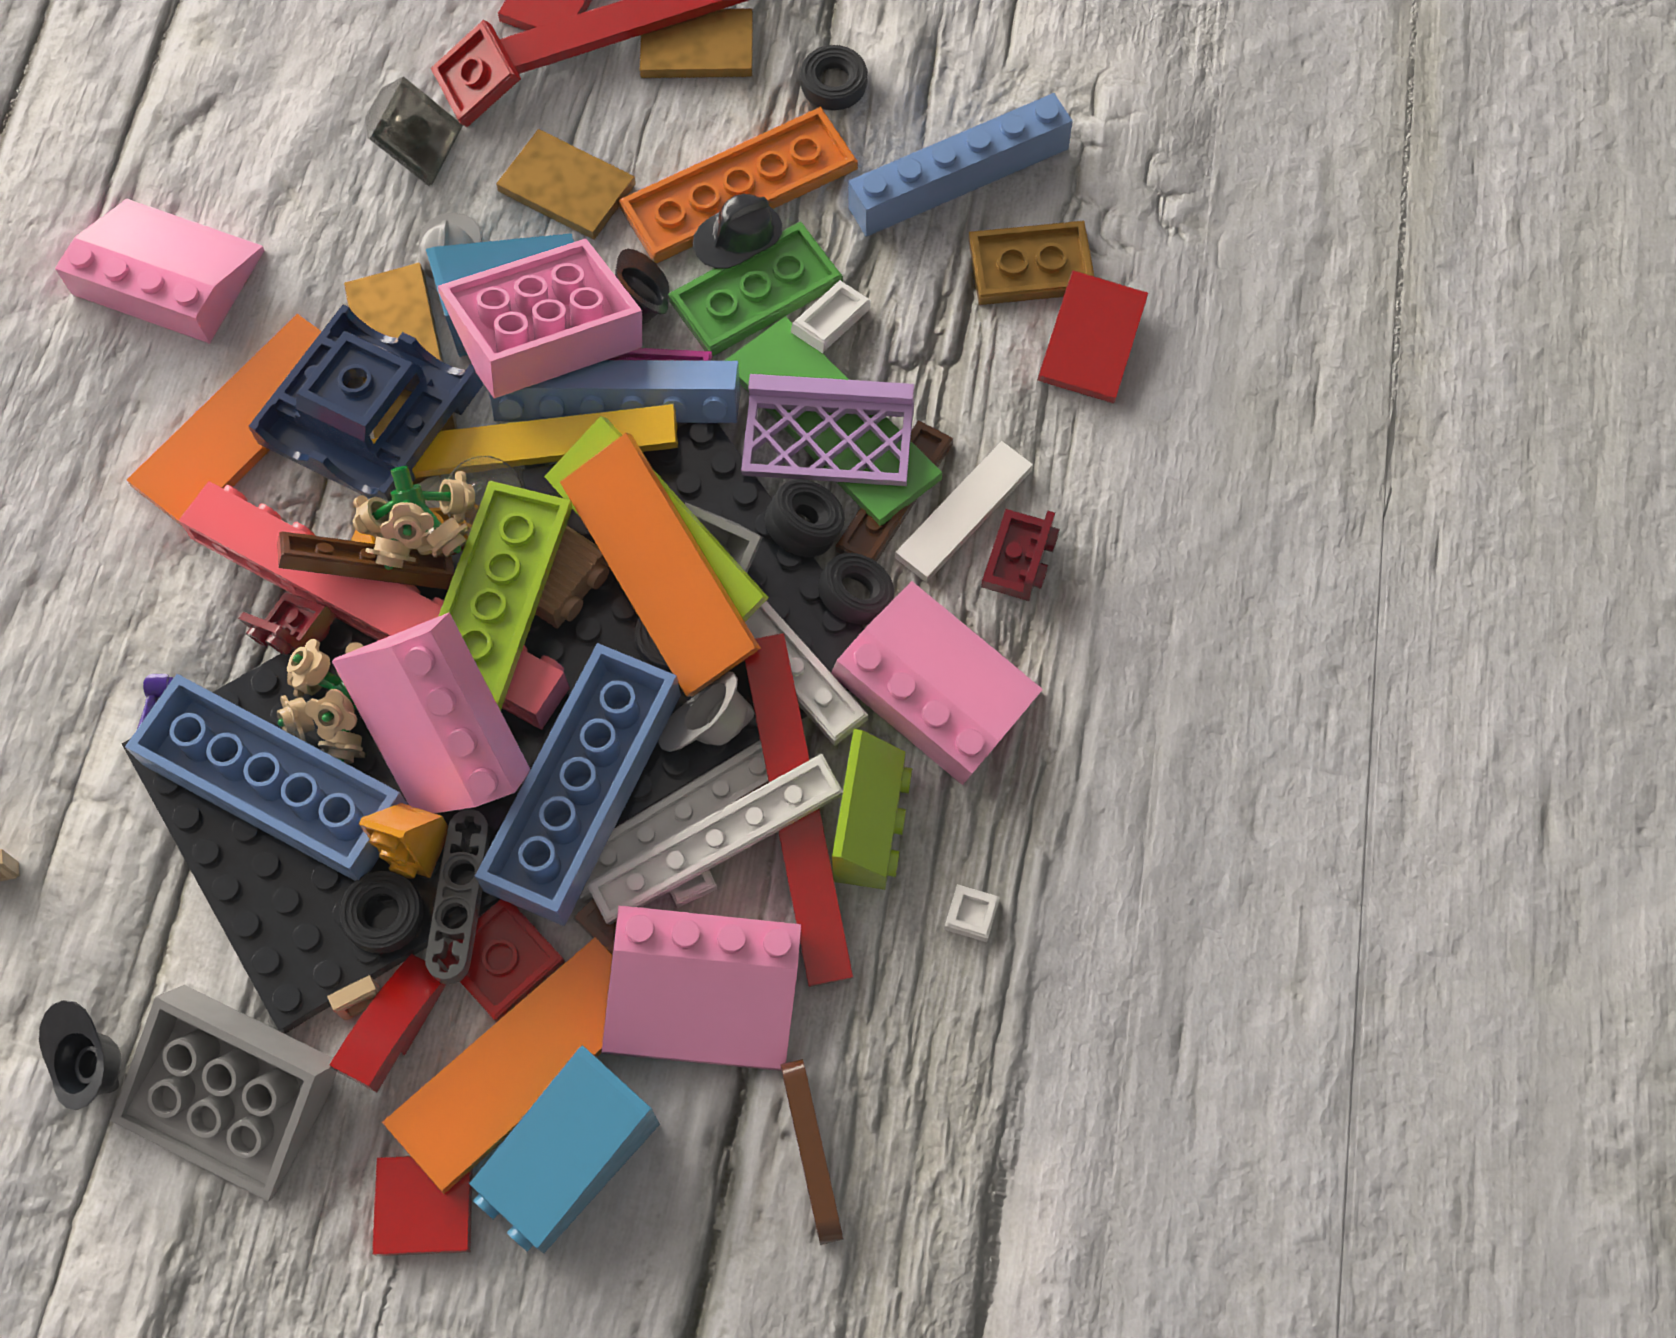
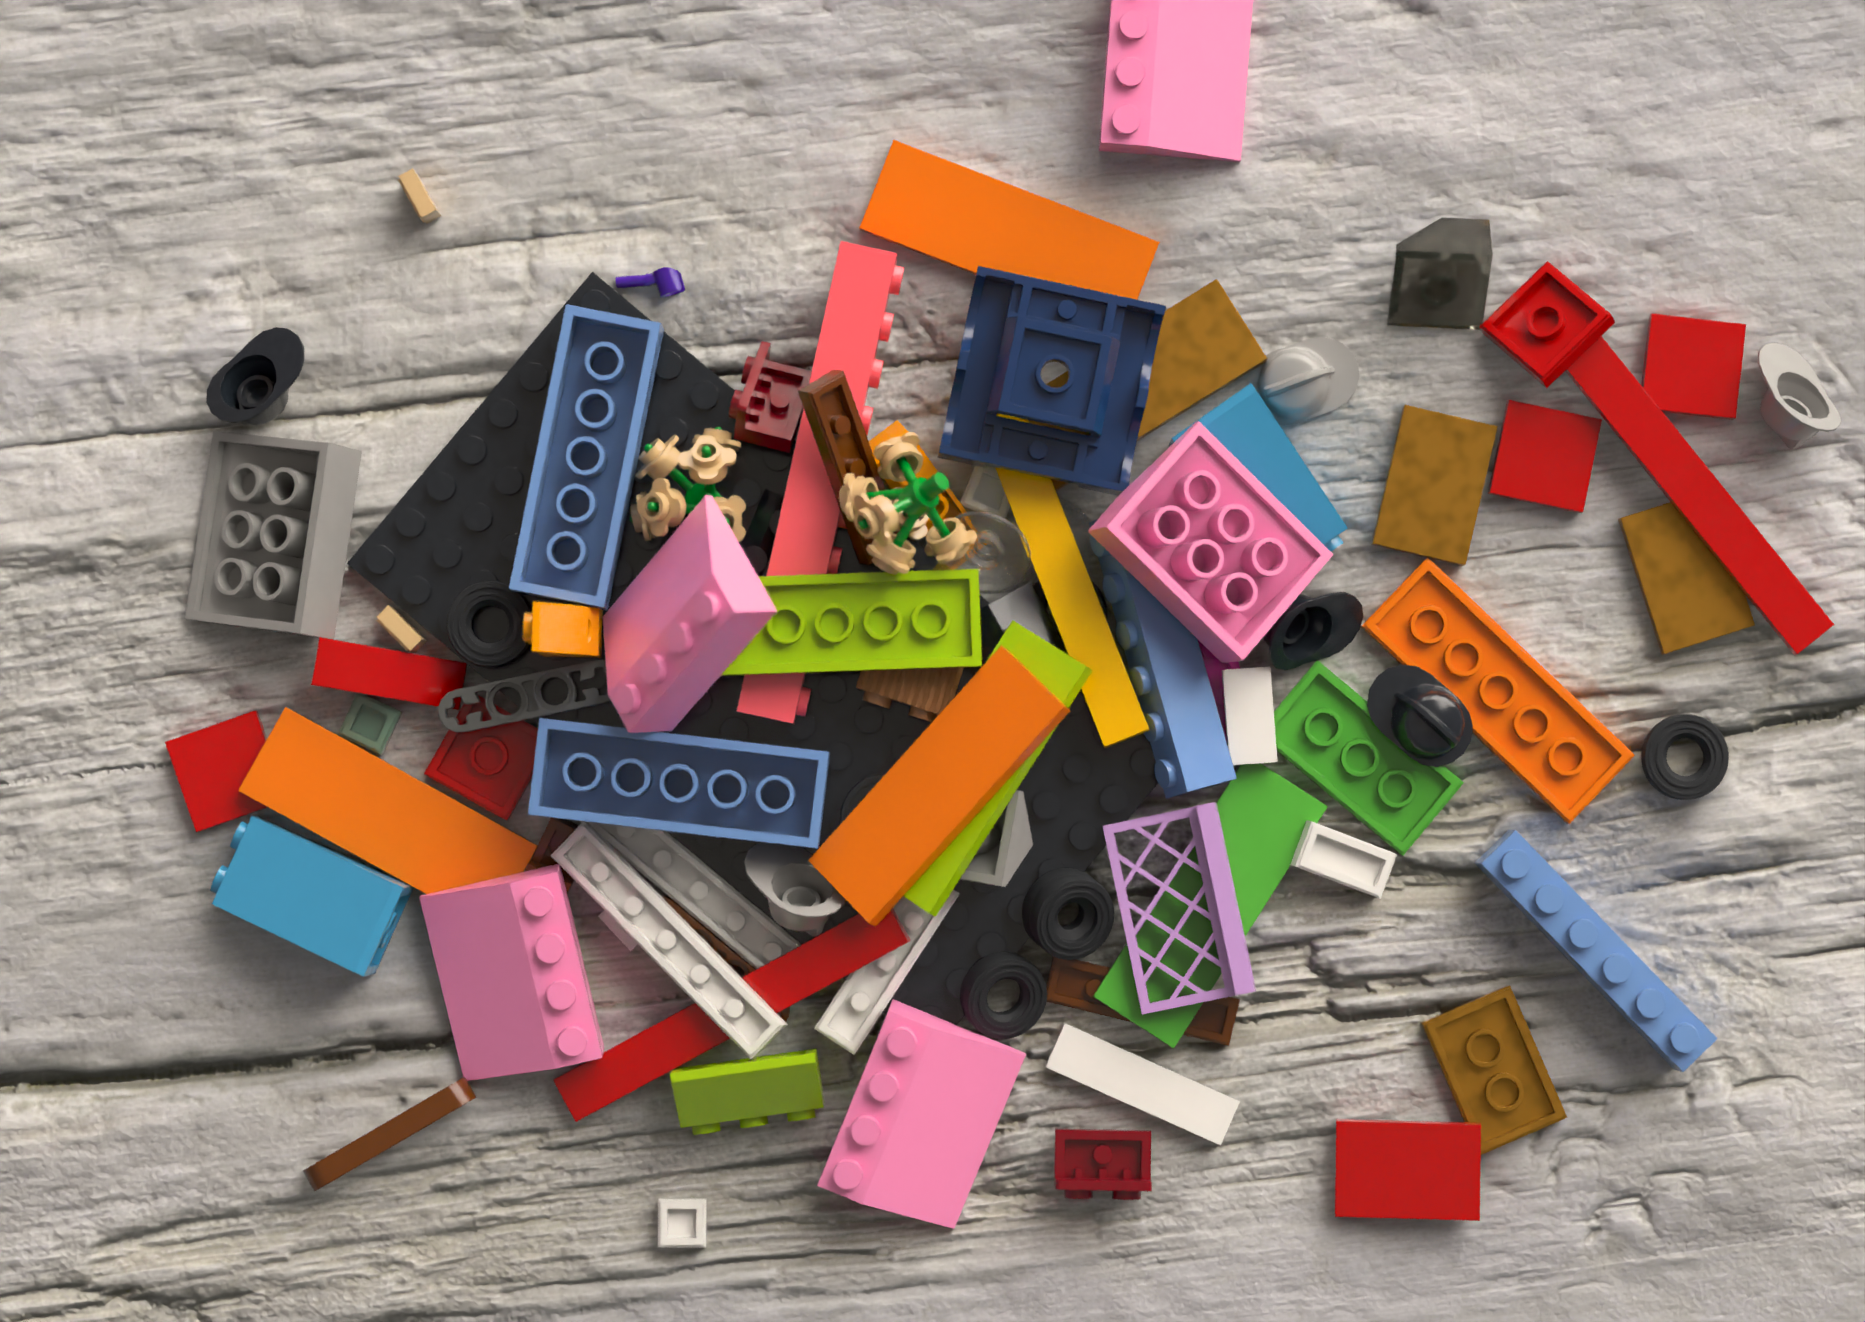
camera: 70 degrees right, 20 degrees up
(428, 1054) = (370, 723): none -> sand green tile
(574, 107) = (1545, 456): none -> red tile
(690, 343) = (1249, 715): none -> white tile

